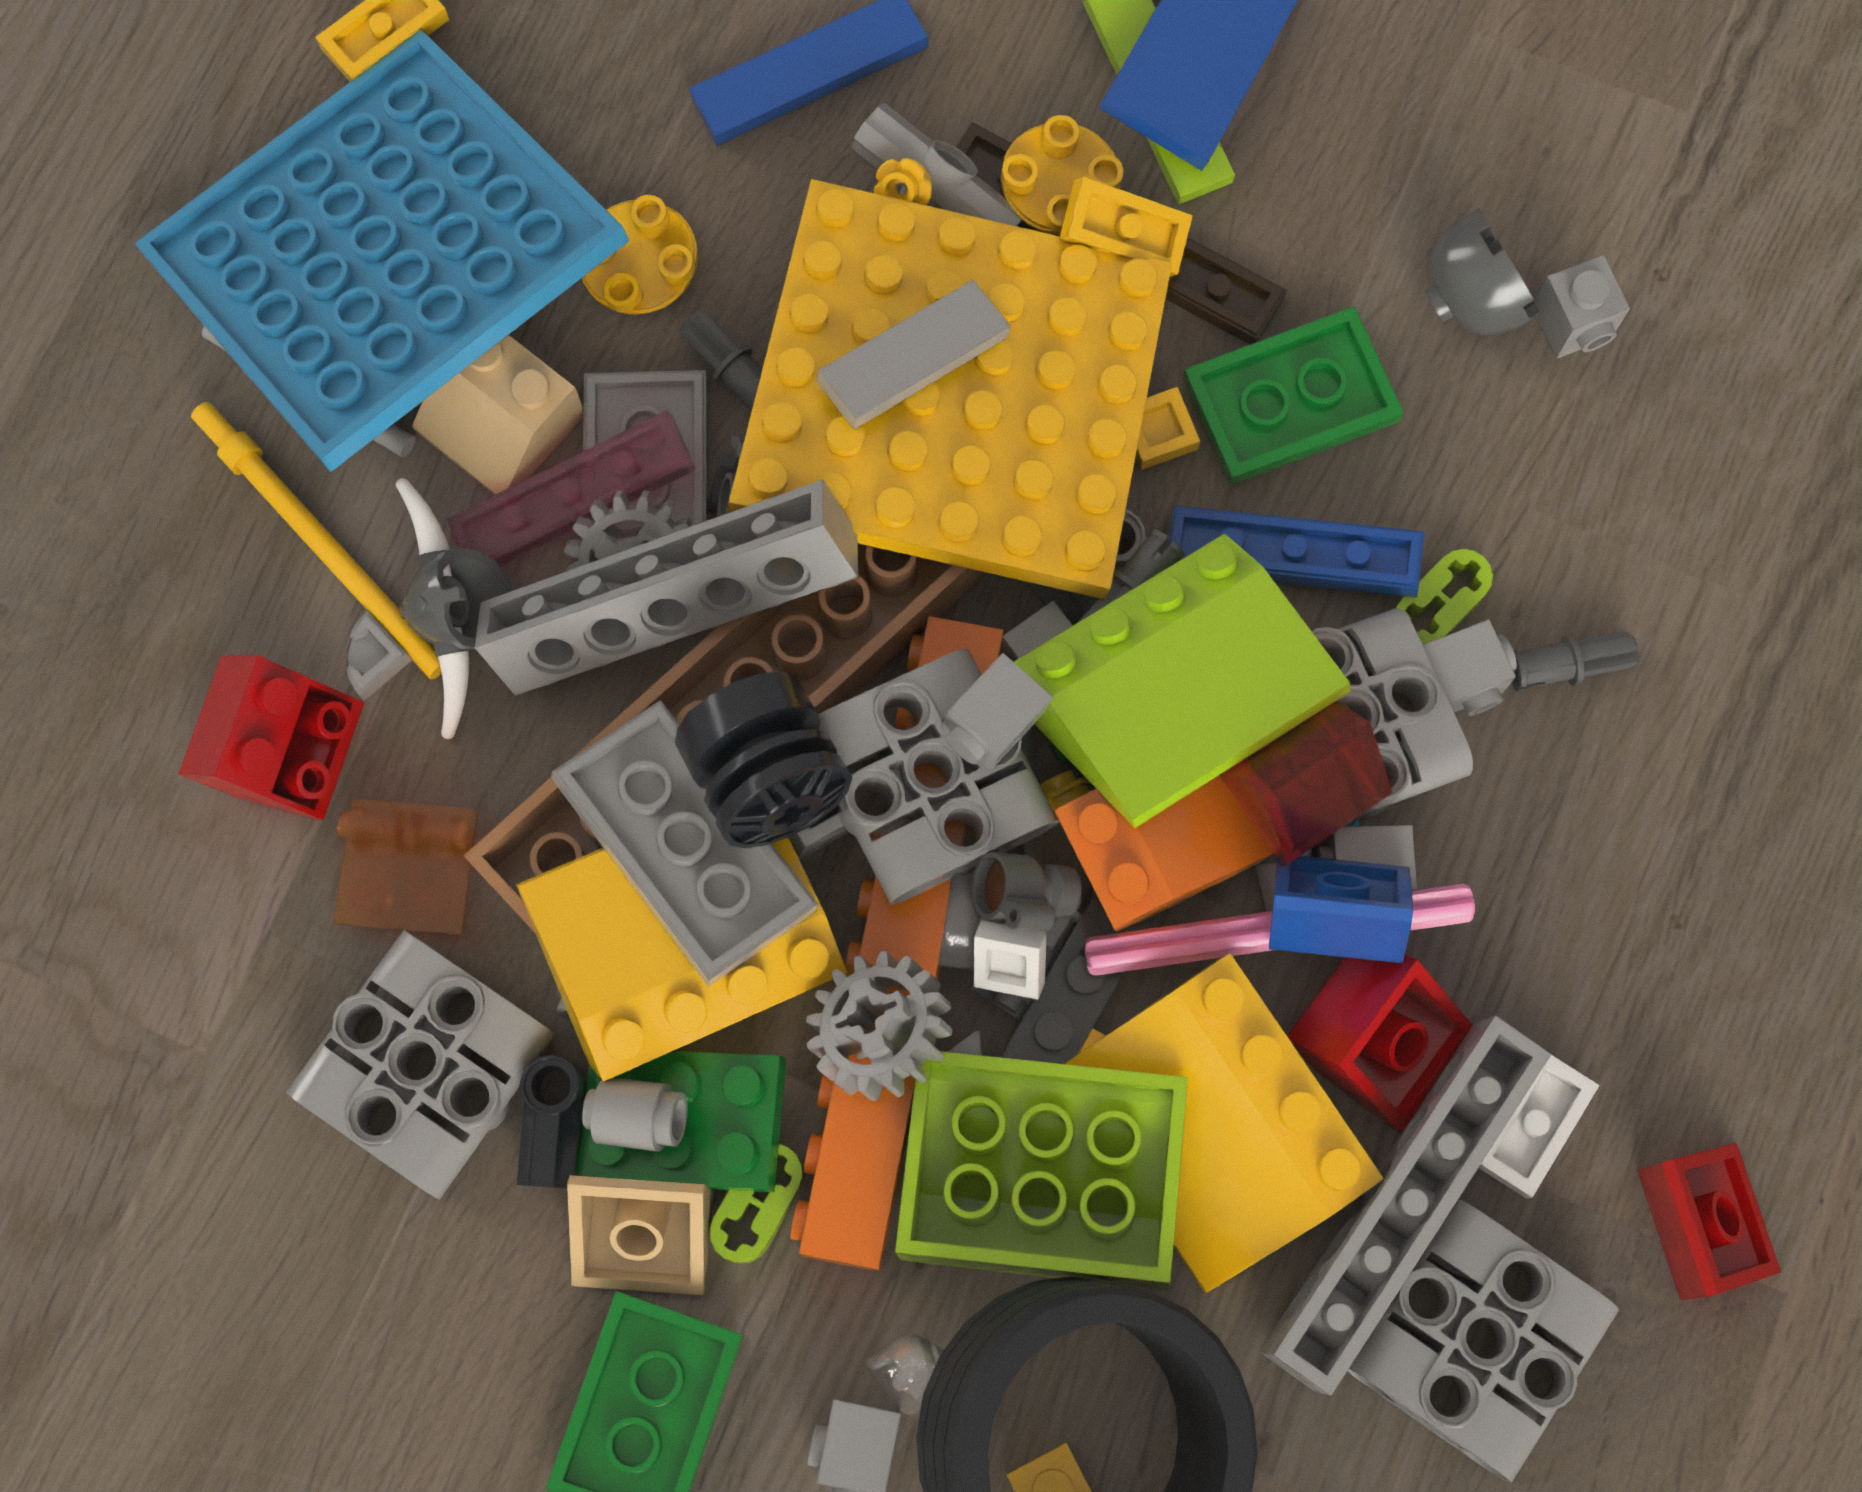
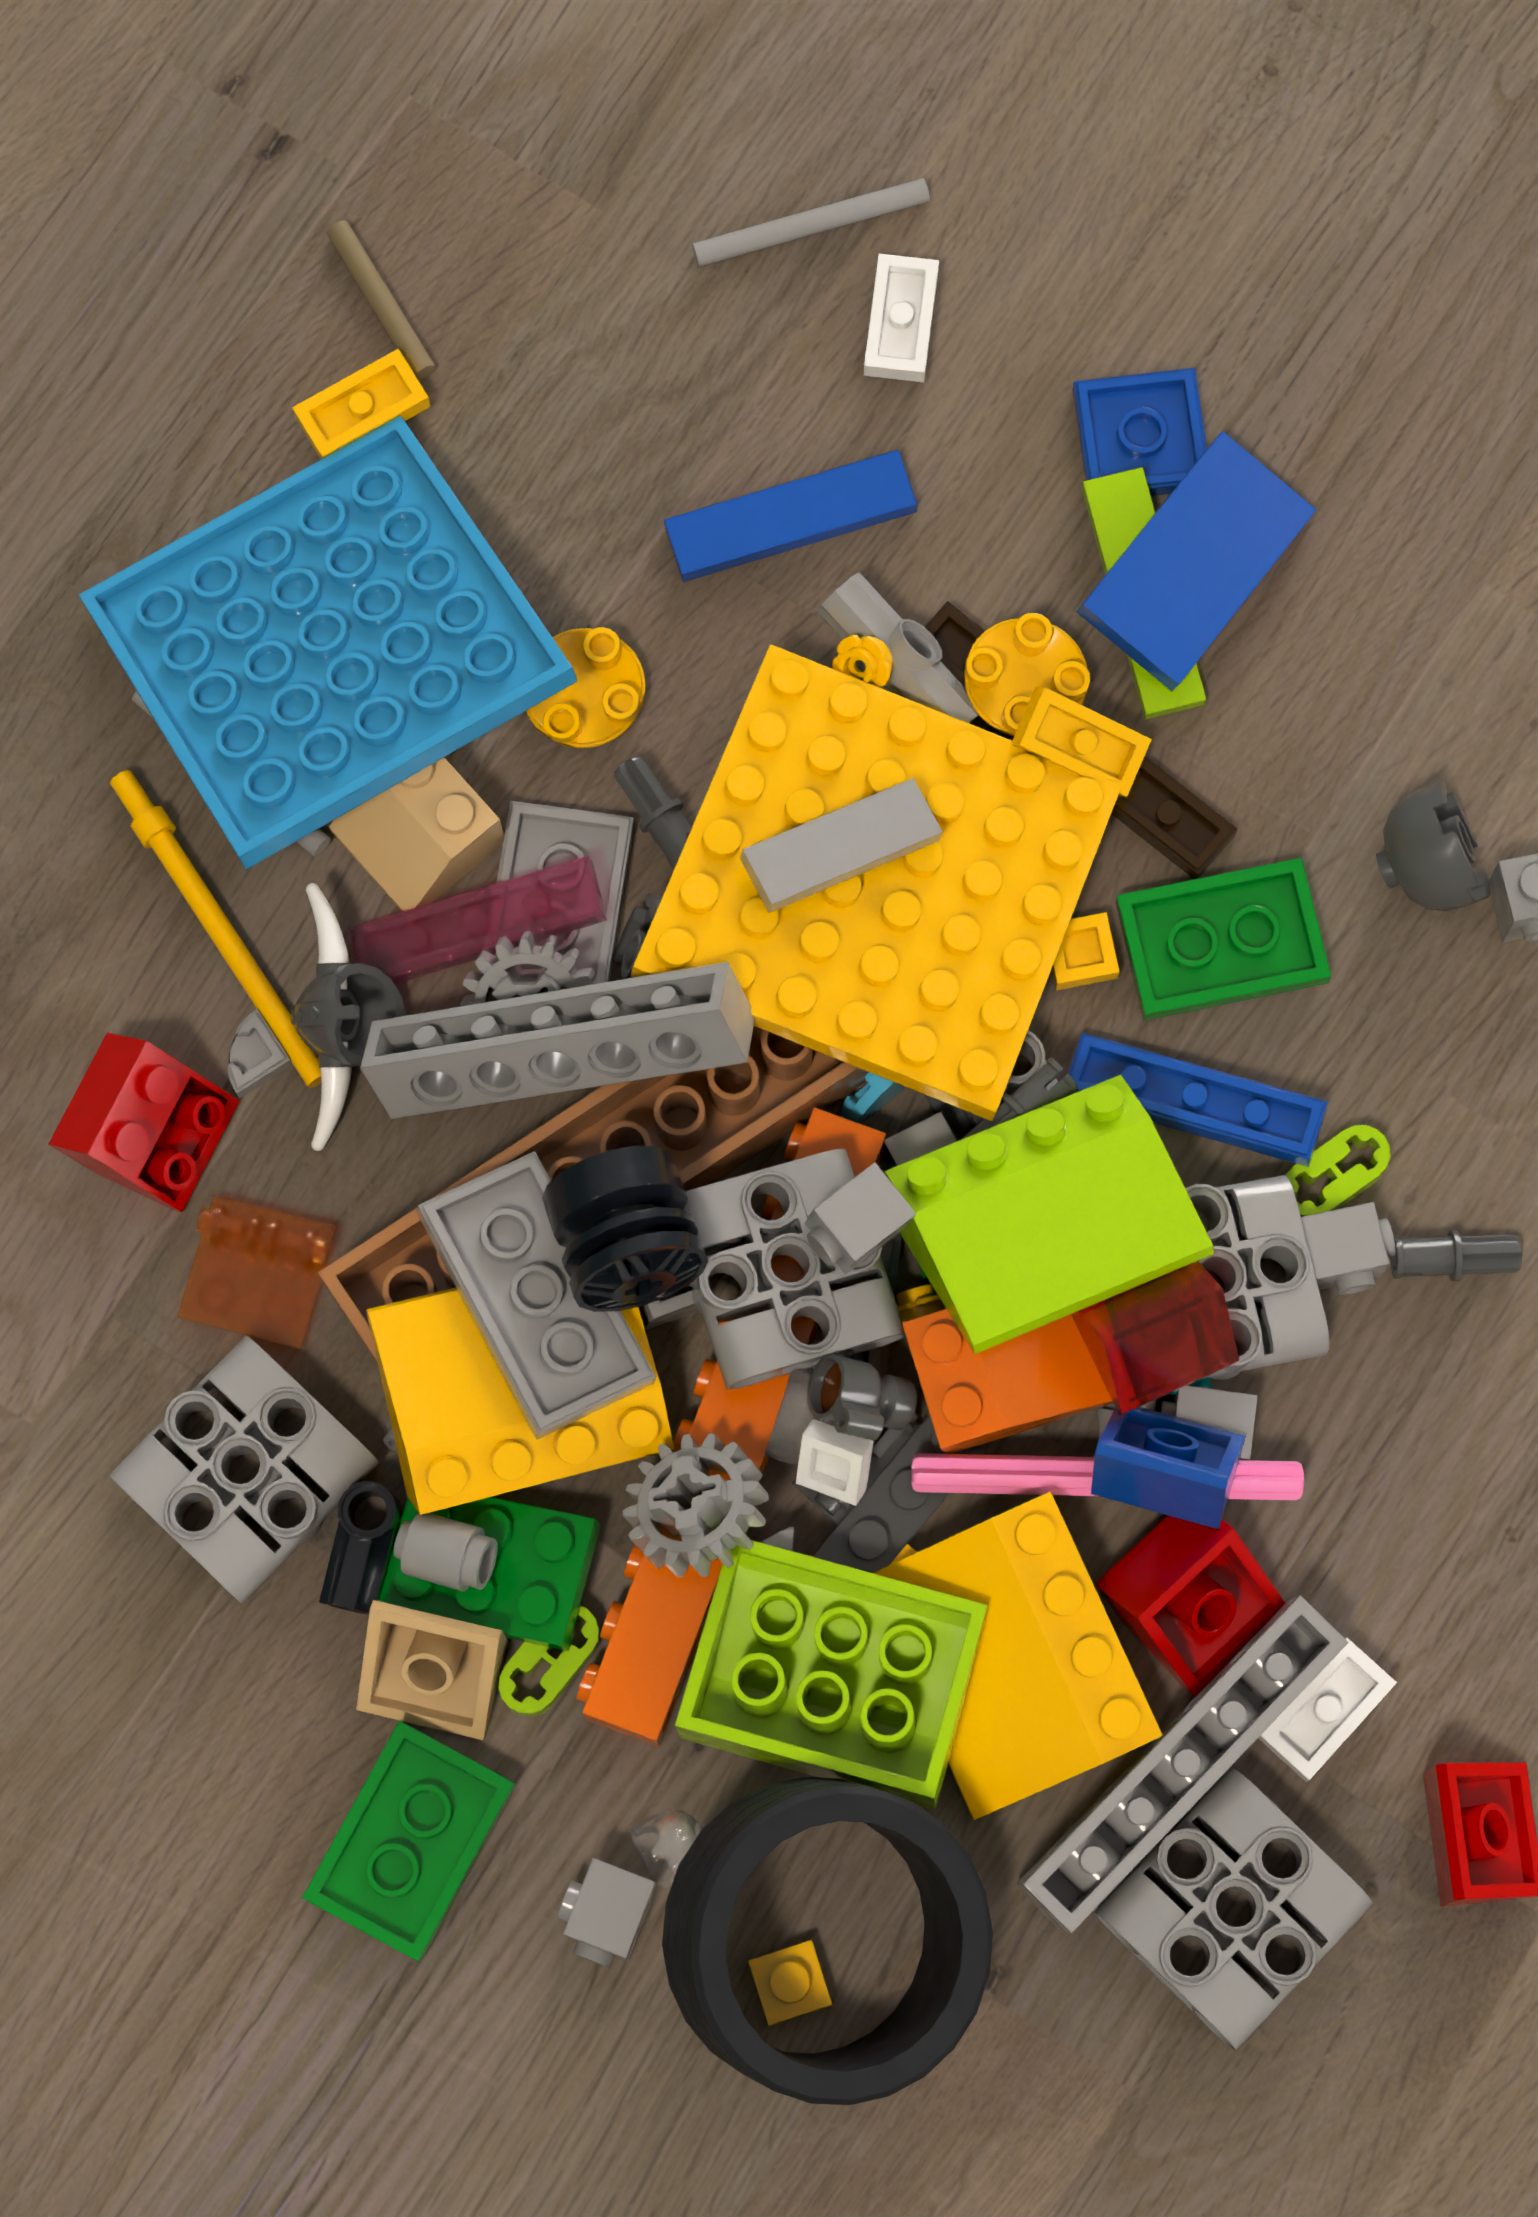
camera: 10 degrees right, 0 degrees up
(982, 599) = (869, 1098): none -> medium azure tile

